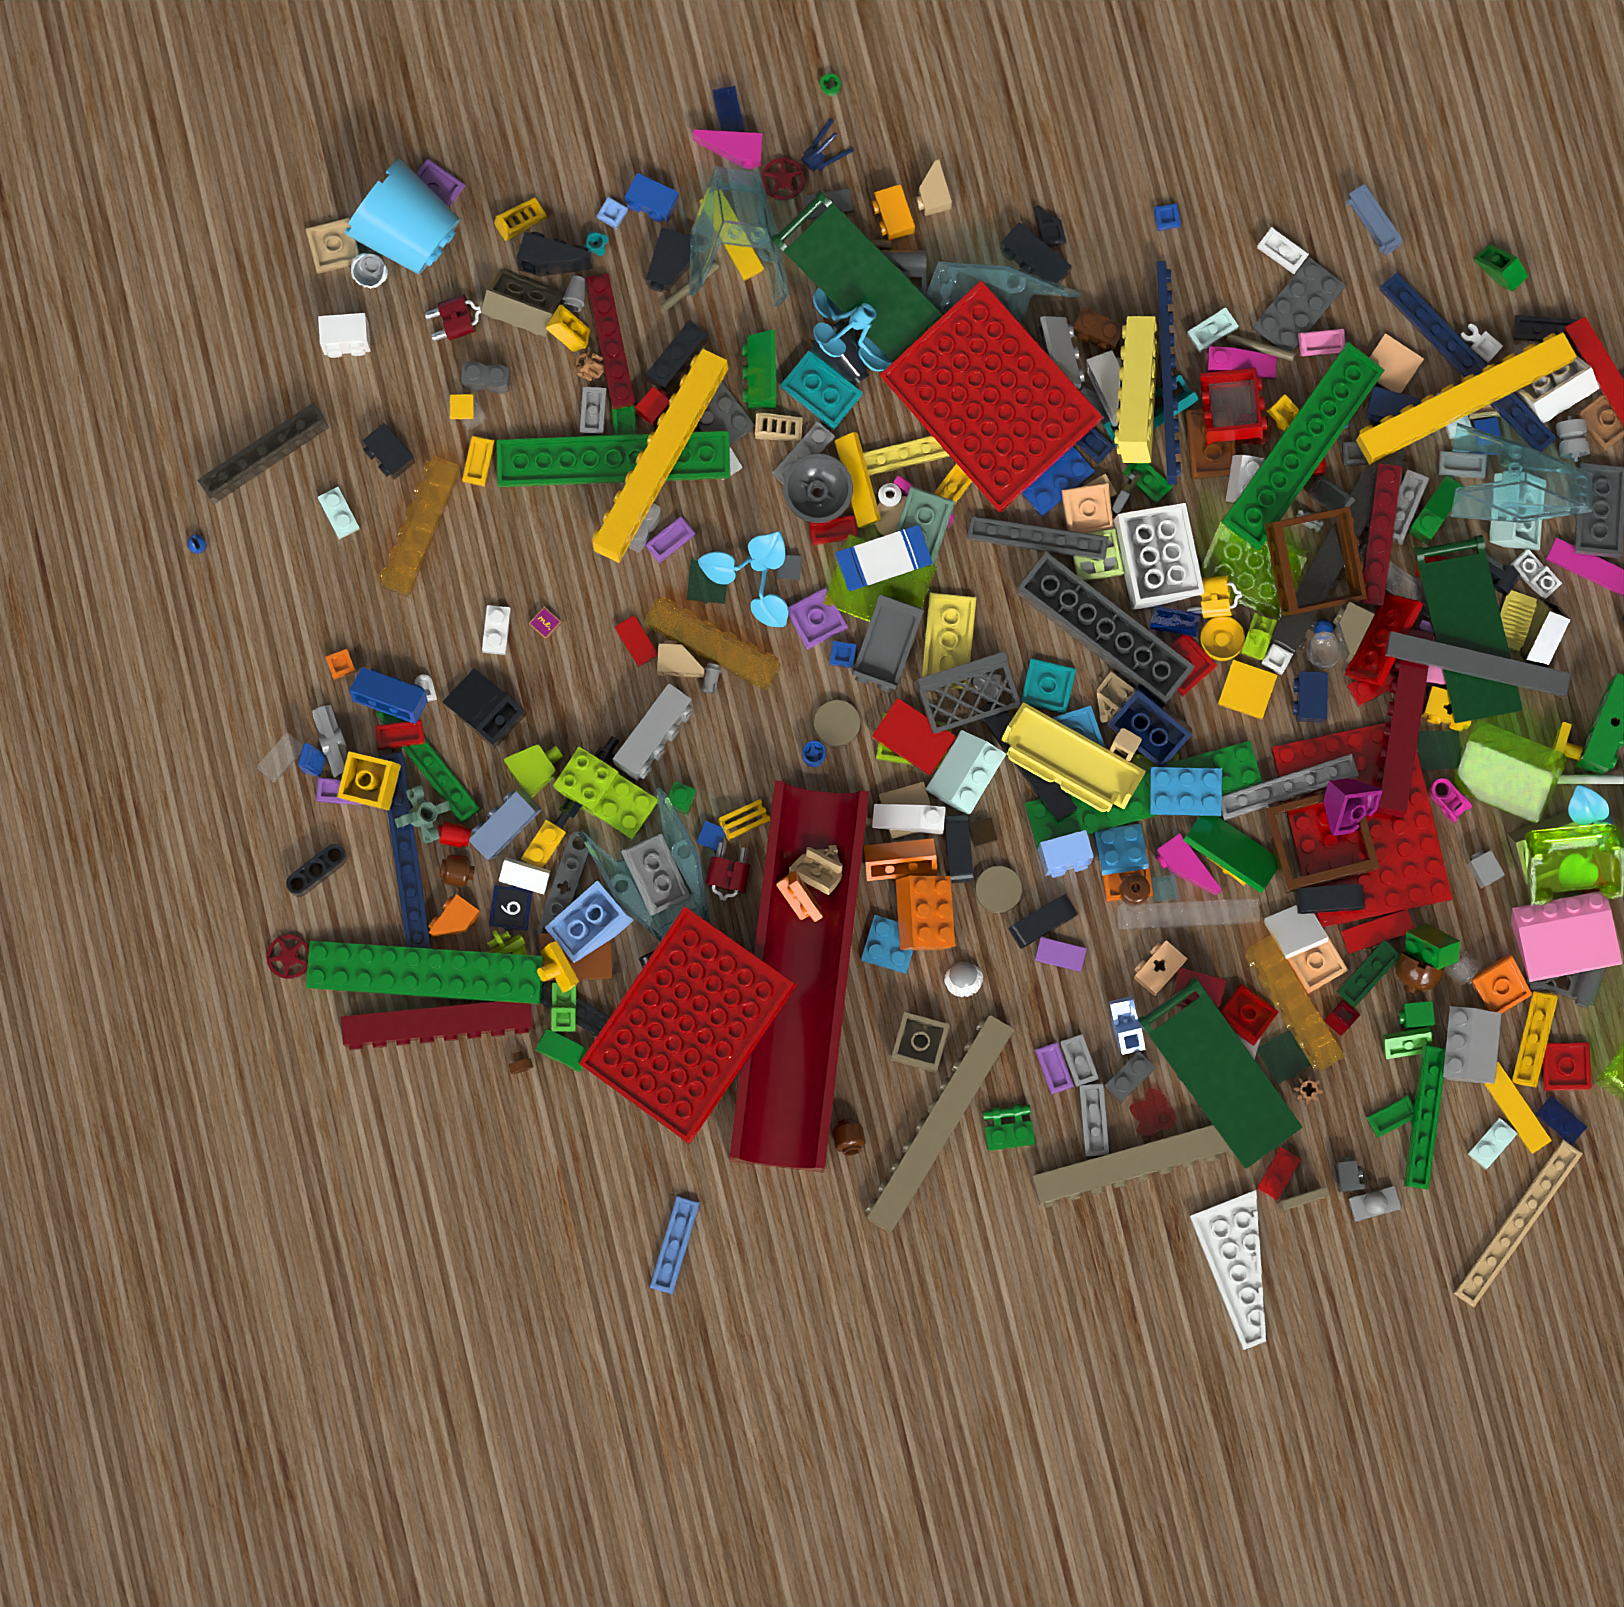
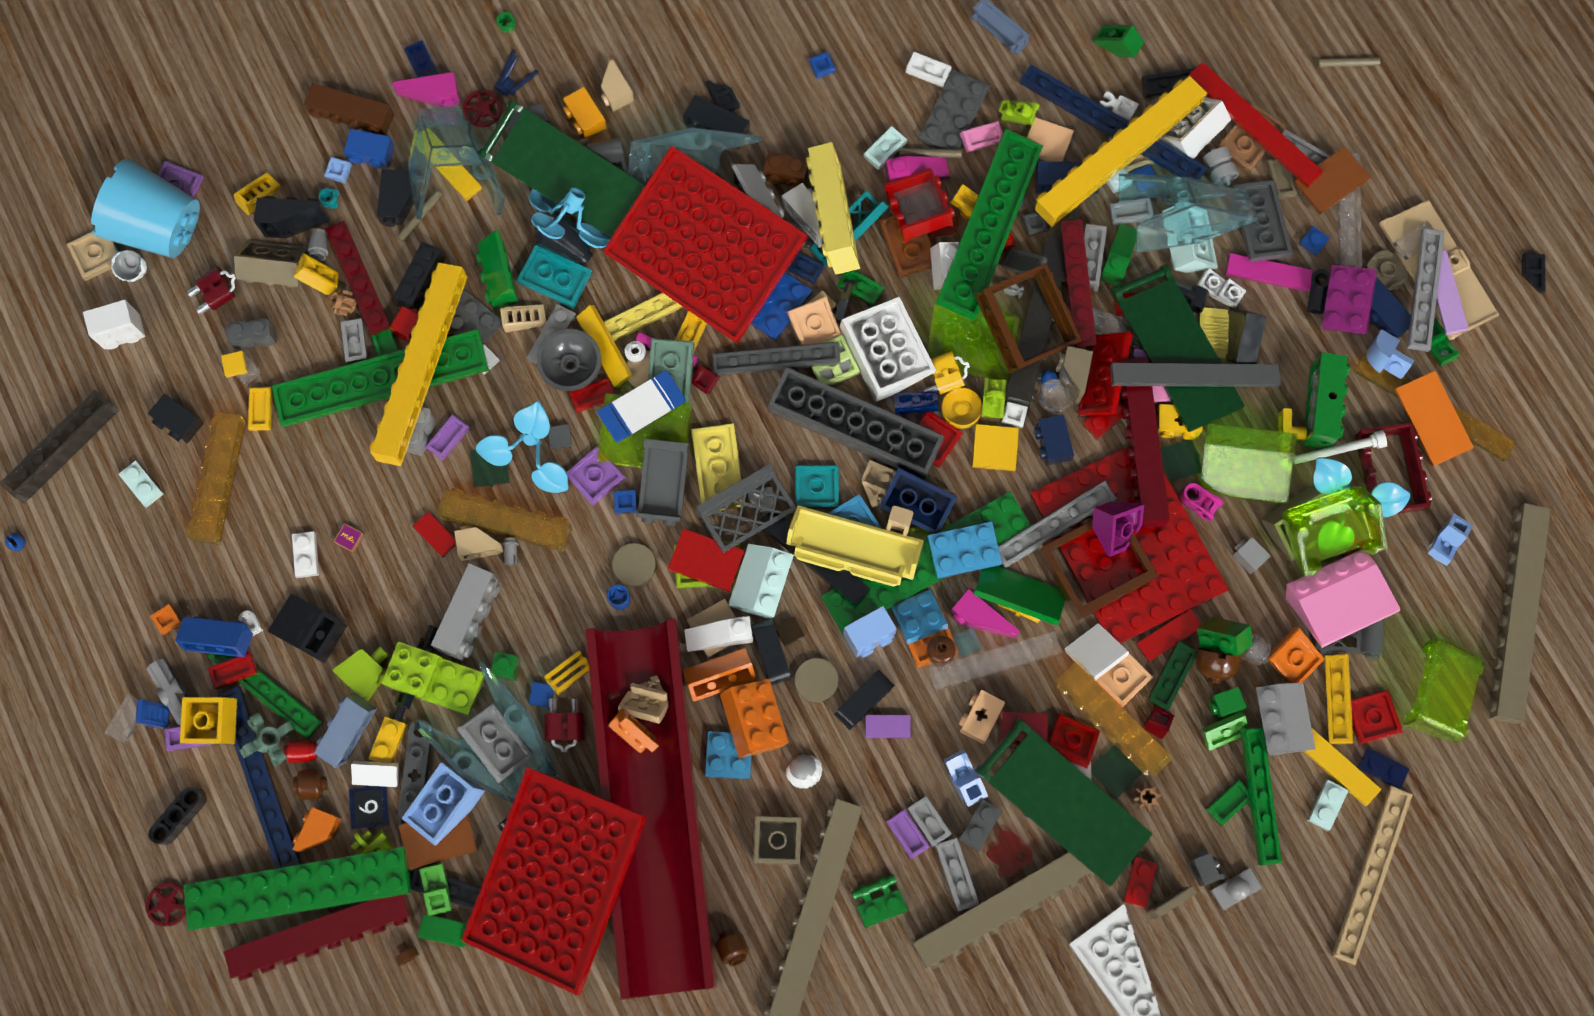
camera: 10 degrees left, 5 degrees down
(557, 967) = (419, 854): yellow tile -> none
(638, 147) = (348, 109): none -> reddish brown brick
(957, 542) = (705, 379): none -> dark red plate
(1169, 381) = (858, 195): dark blue plate -> none
(1330, 899) = (1120, 615): black beam -> none
(1368, 324) = (1018, 111): none -> lime hips

